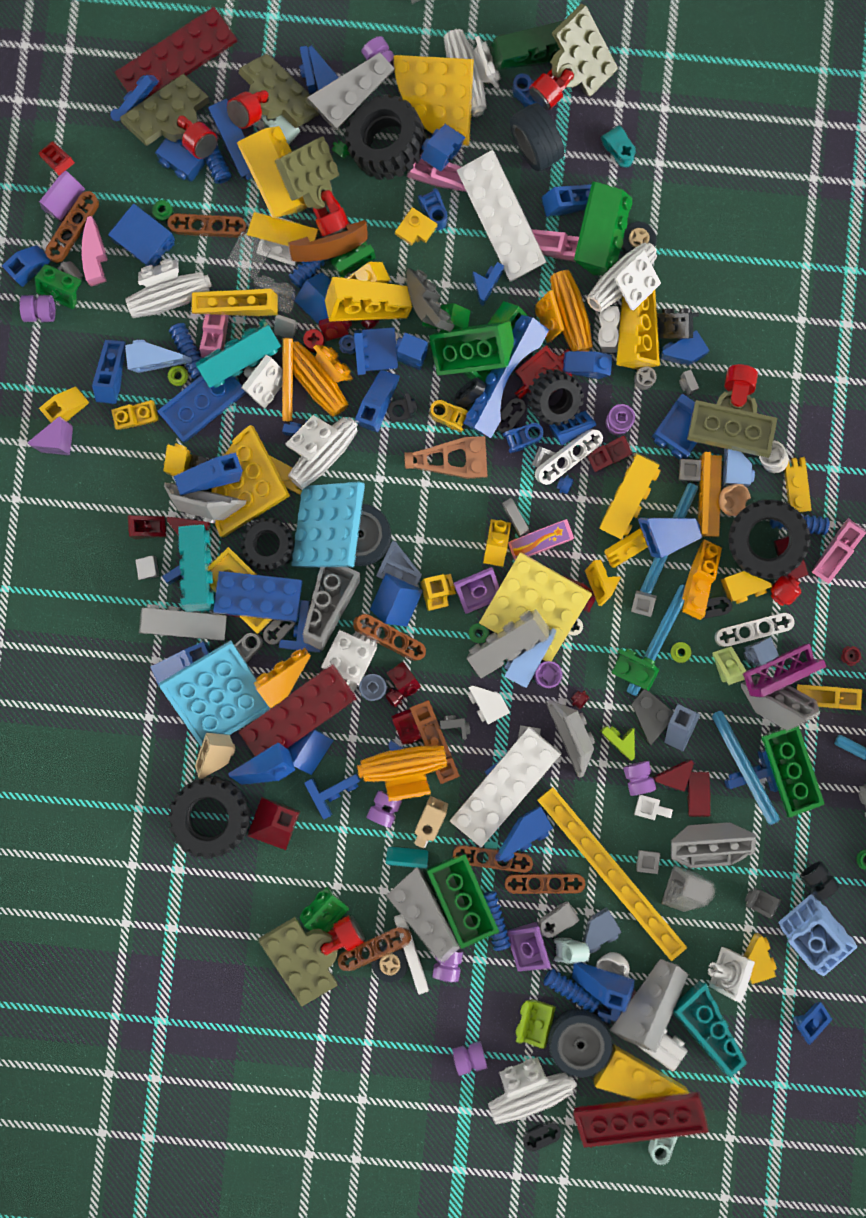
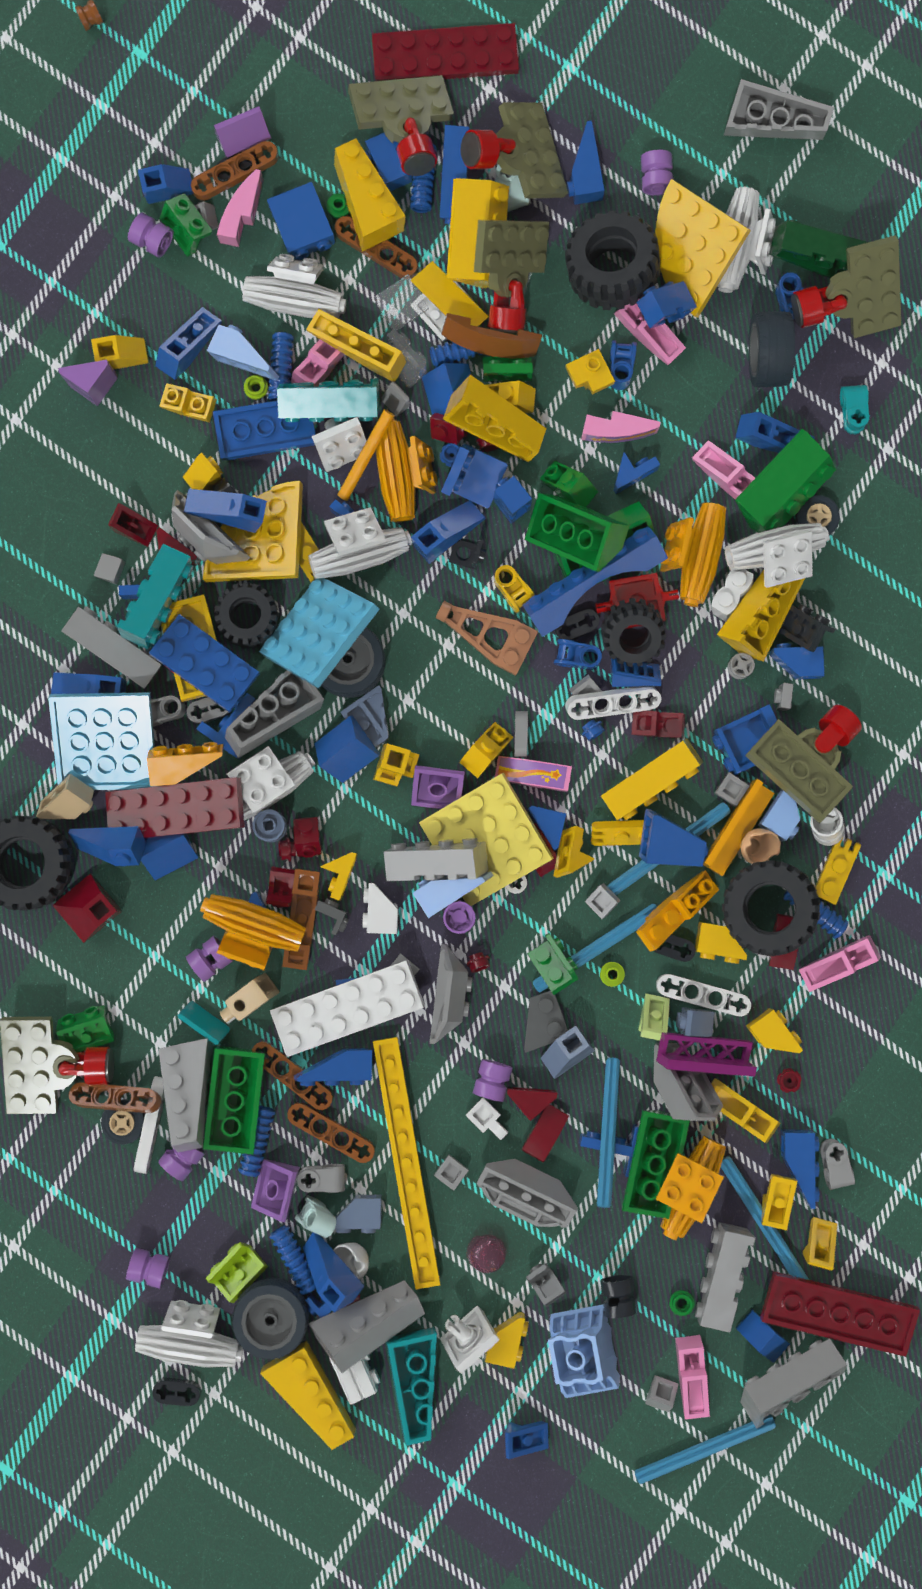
camera: 30 degrees right, 0 degrees up
(56, 158) = (258, 89): red tile -> none
(135, 97) = (374, 72): blue plate -> none
(183, 193) = (367, 196): none -> yellow wedge
(306, 70) = (572, 144): blue plate -> none
(316, 335) = (421, 433): red wheel -> none
(331, 793) = (163, 911): blue bracket -> none
(341, 149) = (559, 245): green plate -> none
(344, 95) = (602, 191): light grey wedge -> none
(388, 640) = (316, 784): dark orange beam -> none
(425, 300) = (555, 453): dark grey slope -> none
(443, 686) = (344, 867): none -> yellow slope
(458, 257) = (619, 429): none -> bright pink slope
(470, 392) = (547, 576): black beam -> none
(474, 638) = (405, 833): green plate -> none
(501, 215) = (687, 410): white plate -> none
(573, 569) = (550, 823): none -> blue slope
(587, 364) = (688, 617): blue slope -> none
(620, 419) = (688, 694): medium lavender wheel -> none
(624, 745) = (499, 1036): lime slope -> none
(641, 1120) = (287, 1434): dark red plate -> none
(667, 1144) = (302, 1468): light aqua piece -> none
(687, 890) = (473, 1223): light grey wedge -> none
(710, 911) = (486, 1253): none -> clear pink hair
(785, 590) = (759, 972): red head -> none
(819, 628) = (773, 1034): none -> yellow slope
(828, 772) = (691, 1187): none -> light orange plate

